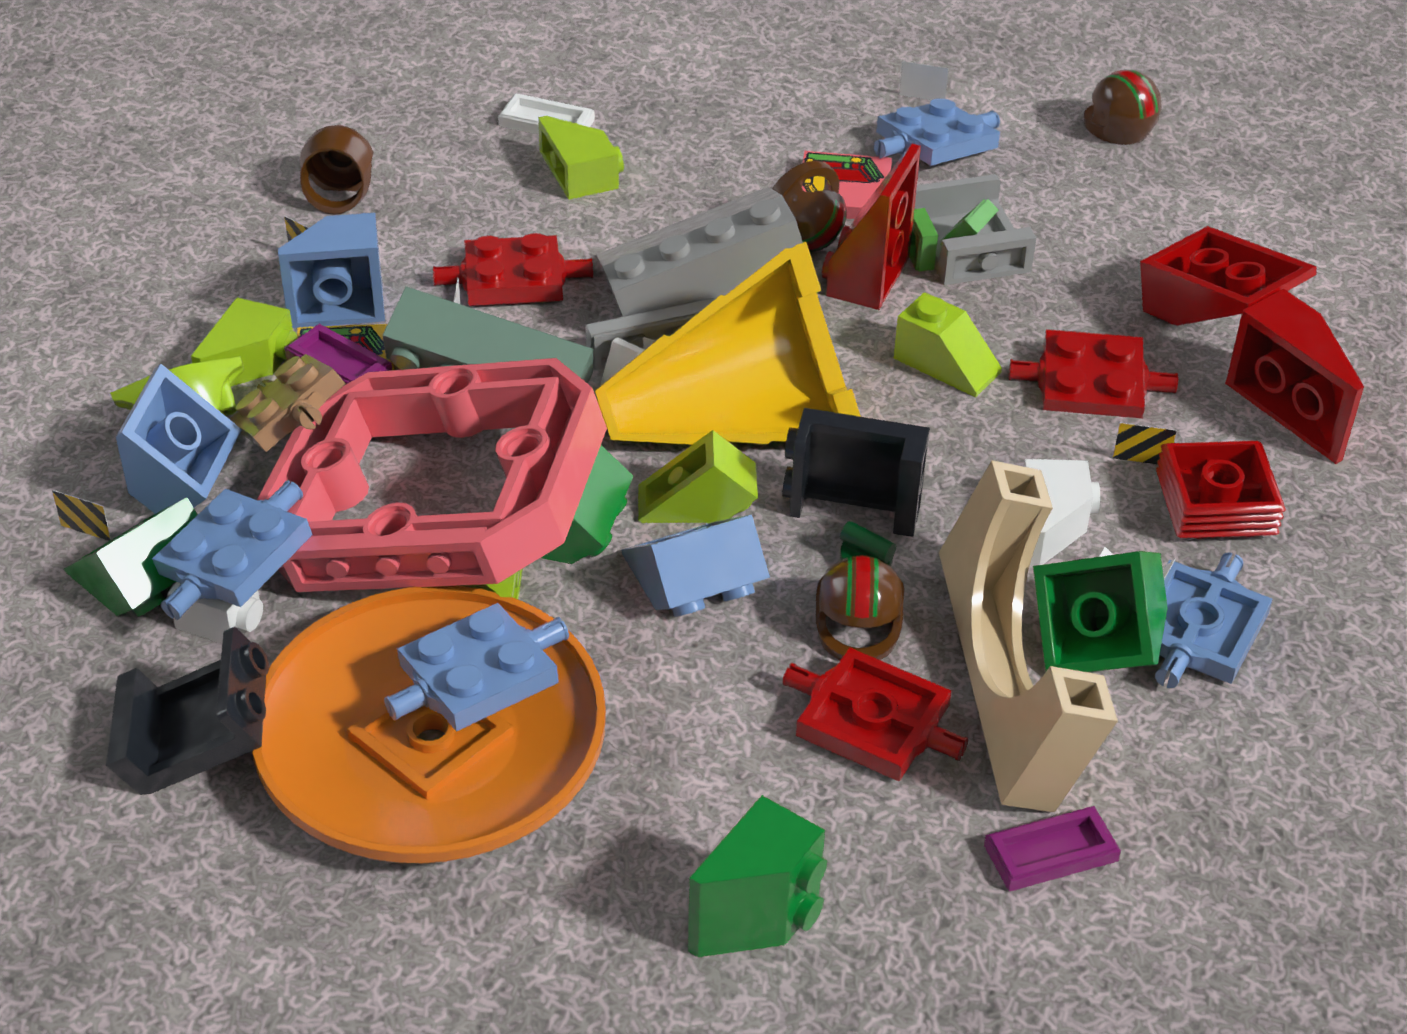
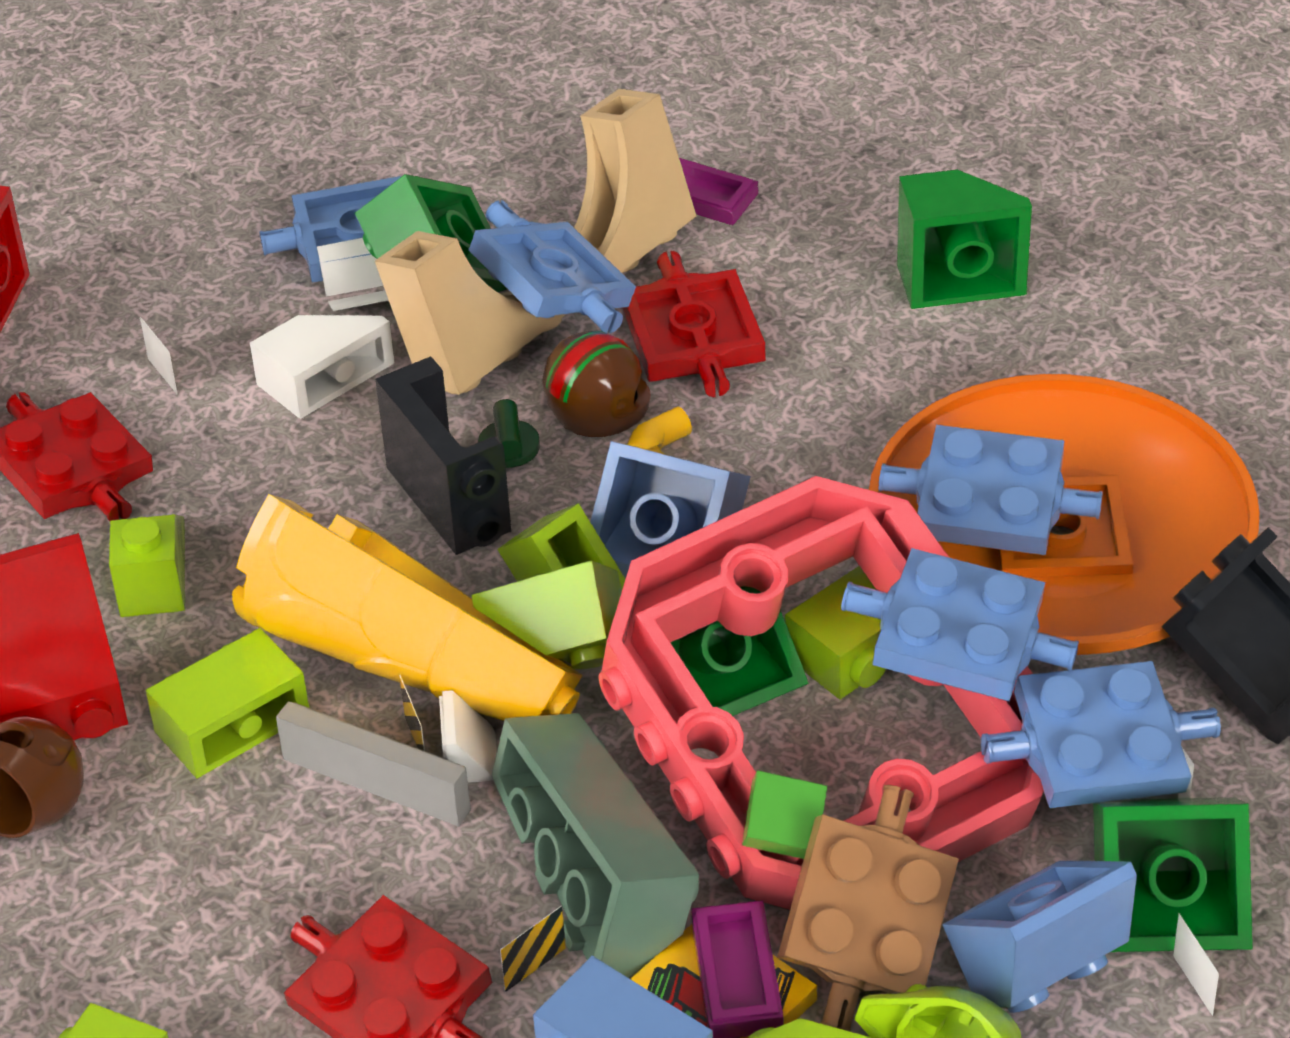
camera: 130 degrees left, 0 degrees up
(364, 502) = (959, 624): none -> medium blue plate
(370, 384) = (782, 813): none -> bright green tile
(656, 429) = (559, 612): none -> lime slope
(700, 254) = (220, 785): light grey slope -> none
(789, 619) = (661, 430): none -> yellow arm
(977, 612) = (551, 268): none -> medium blue plate
(1220, 489) = (176, 283): red brick -> none

